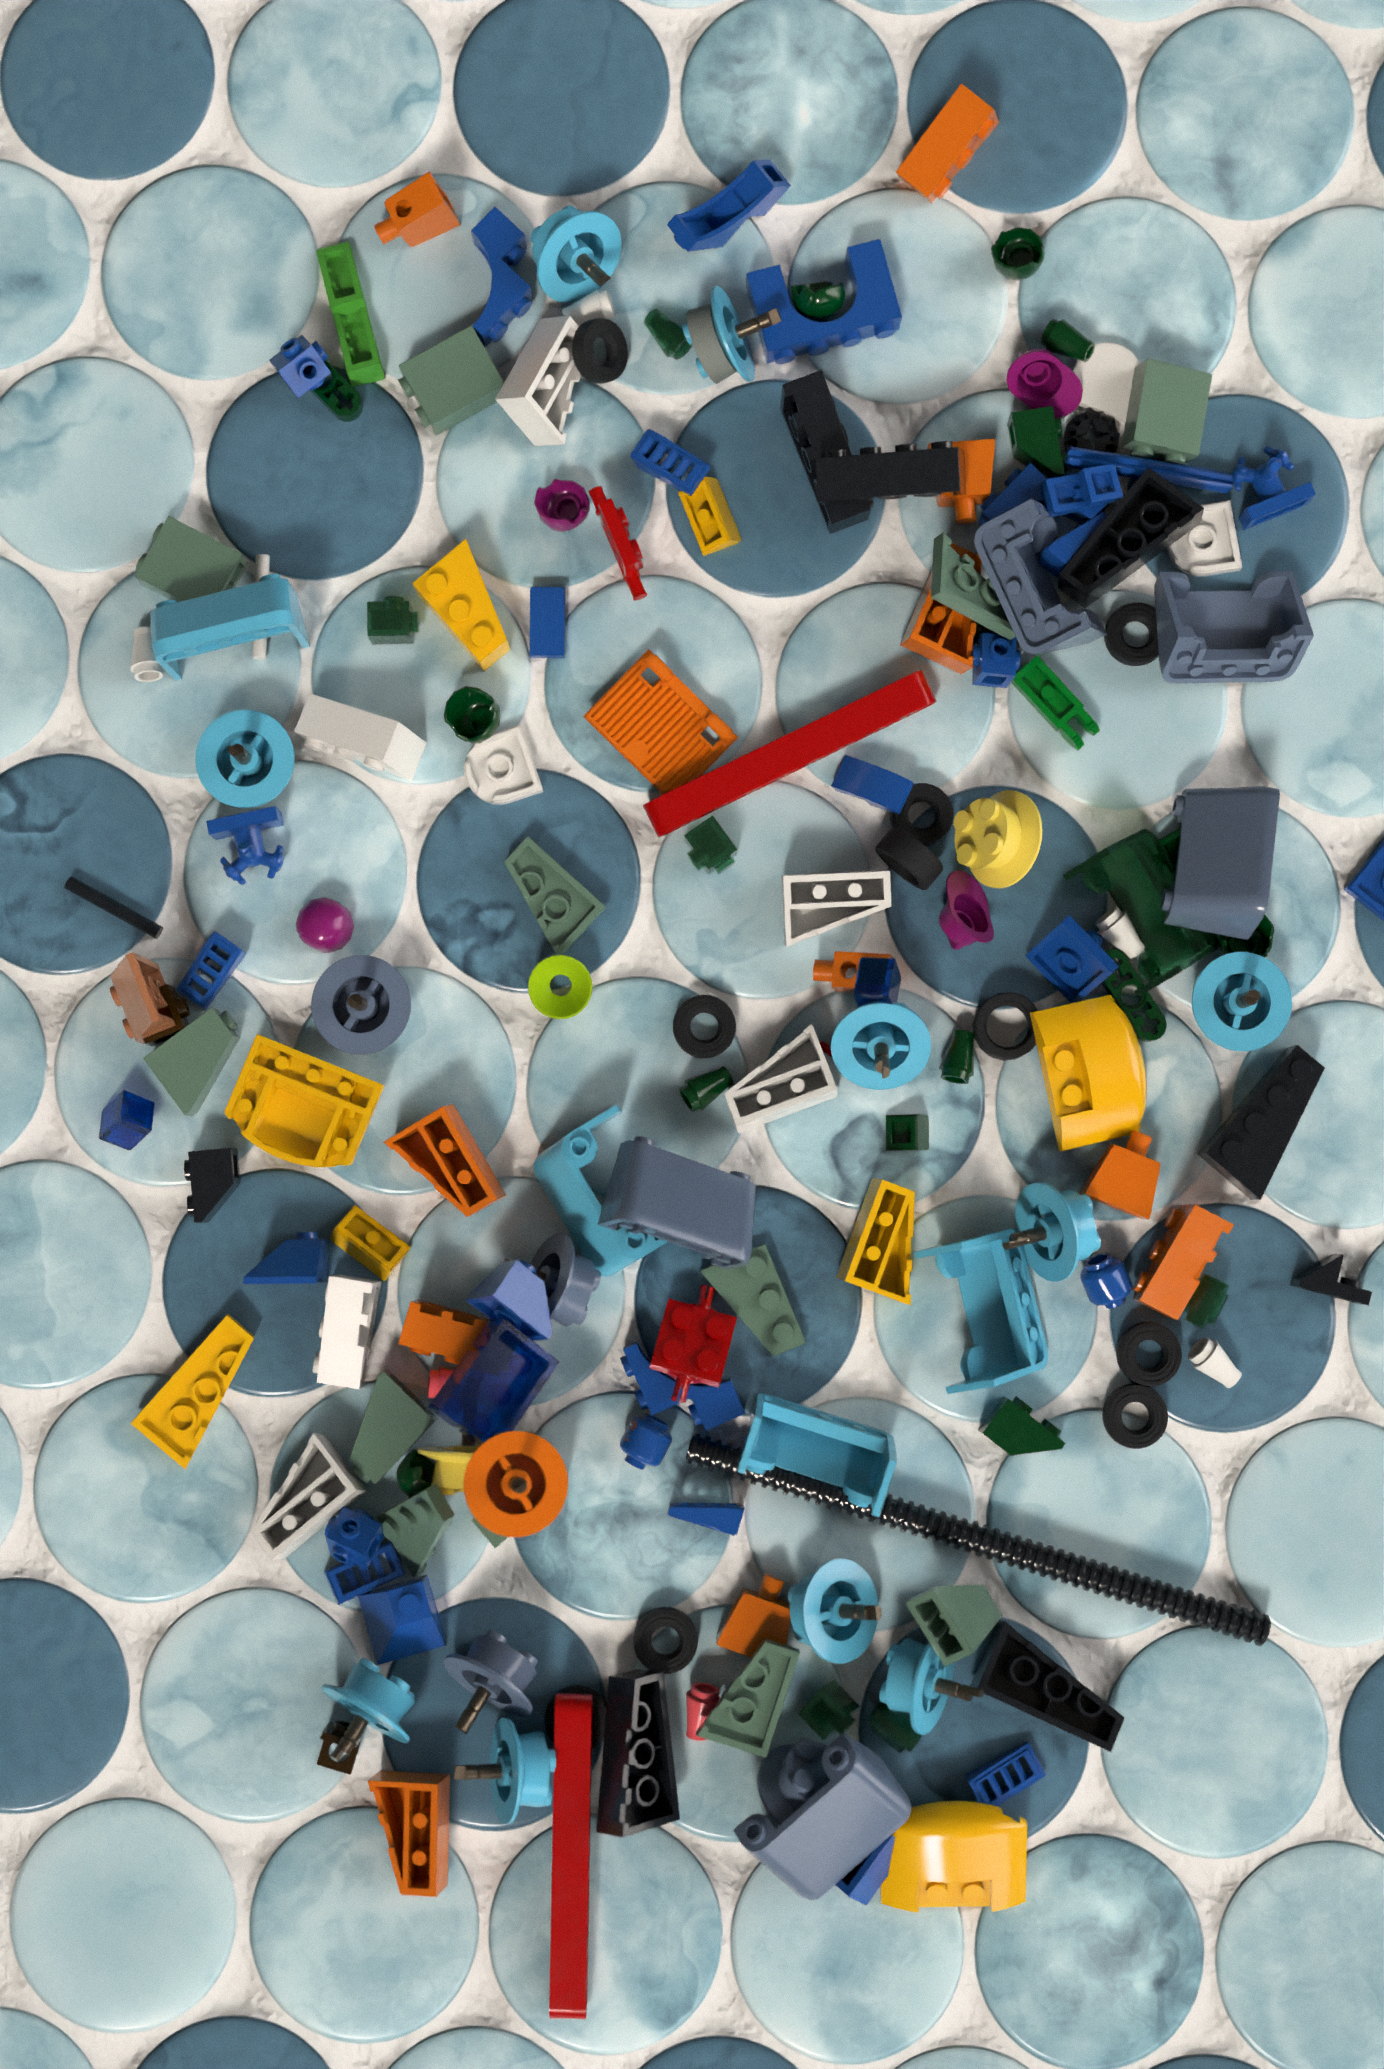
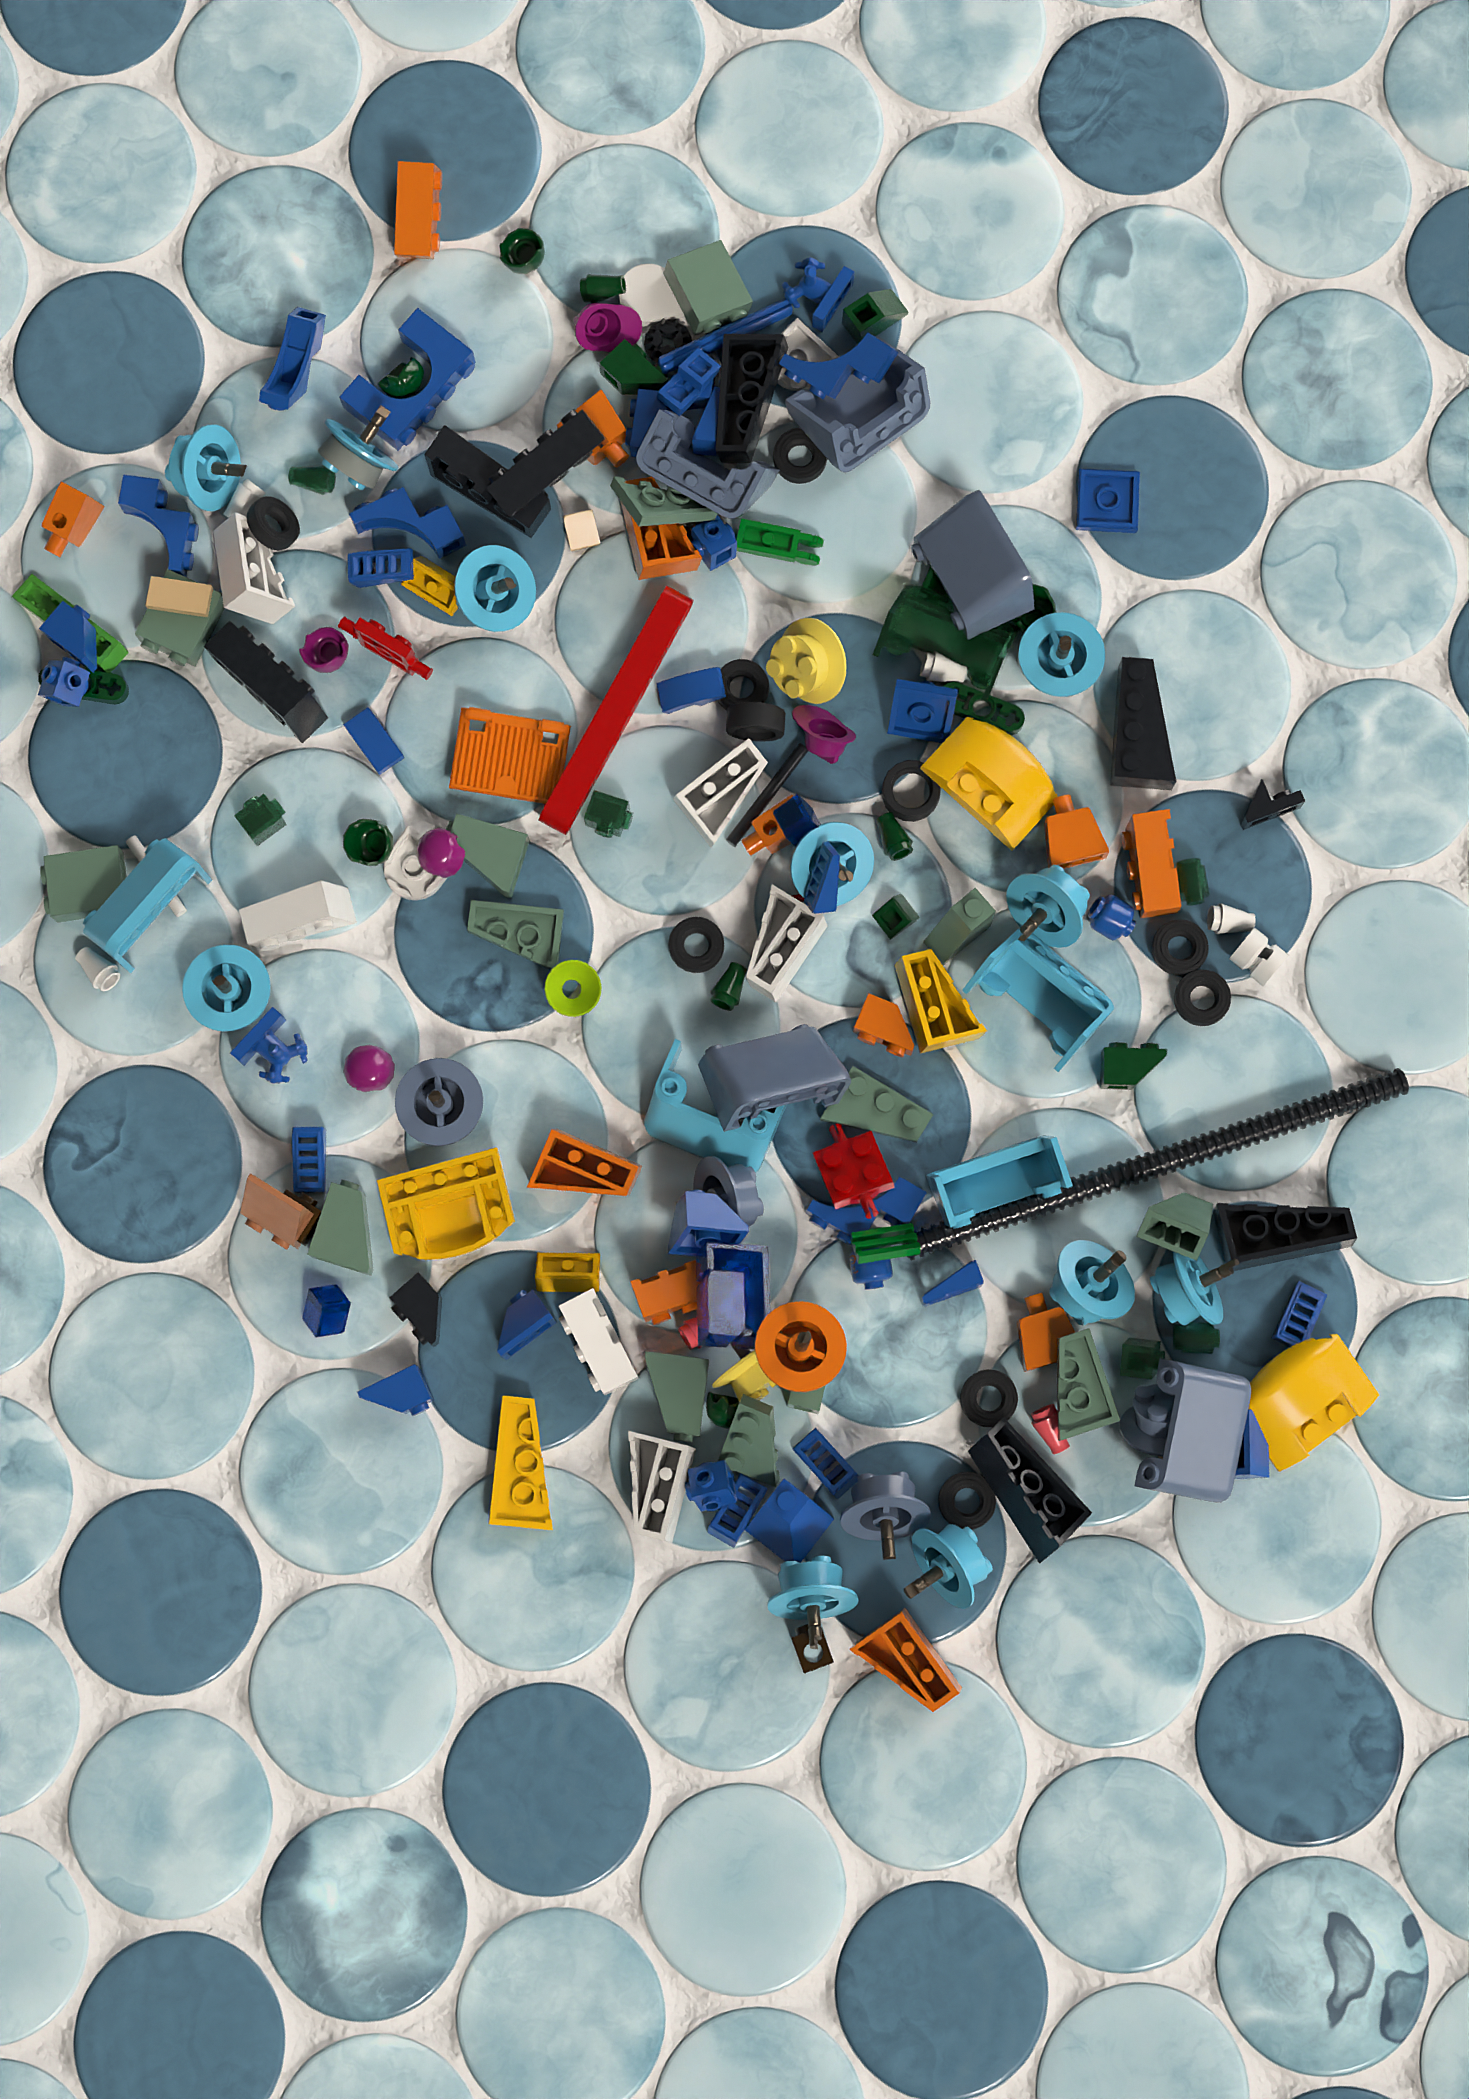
camera: 35 degrees left, 5 degrees down
(113, 907) = (204, 1166): black bar -> none
(138, 1244) = (402, 1392): none -> blue slope
(342, 325) = (73, 634): none -> blue slope
(462, 359) = (179, 596): none -> tan tile
(462, 604) = (305, 770): yellow wedge -> none
(463, 1605) = (845, 1483): none -> blue slope
(487, 495) = (267, 680): none -> black wedge
(529, 772) = (440, 853): none -> magenta hair
(571, 1856) = (1035, 1599): red beam -> none
(578, 802) = (491, 851): none -> sand green slope
(674, 1429) = (883, 1239): none -> green tile
(723, 420) = (397, 511): none -> blue arch
(758, 559) = (495, 588): none -> medium azure piece
(822, 1226) = (883, 1023): none -> orange slope
(858, 1059) = (823, 884): none -> blue slope
(871, 933) = (767, 794): none -> black bar
(880, 560) = (581, 530): none -> tan slope
(957, 1189) = (960, 926): none -> sand green slope
(1217, 1405) = (1247, 957): none -> white wheel
(1267, 589) = (869, 358): none -> blue arch
(1303, 548) = (873, 314): none -> dark green slope

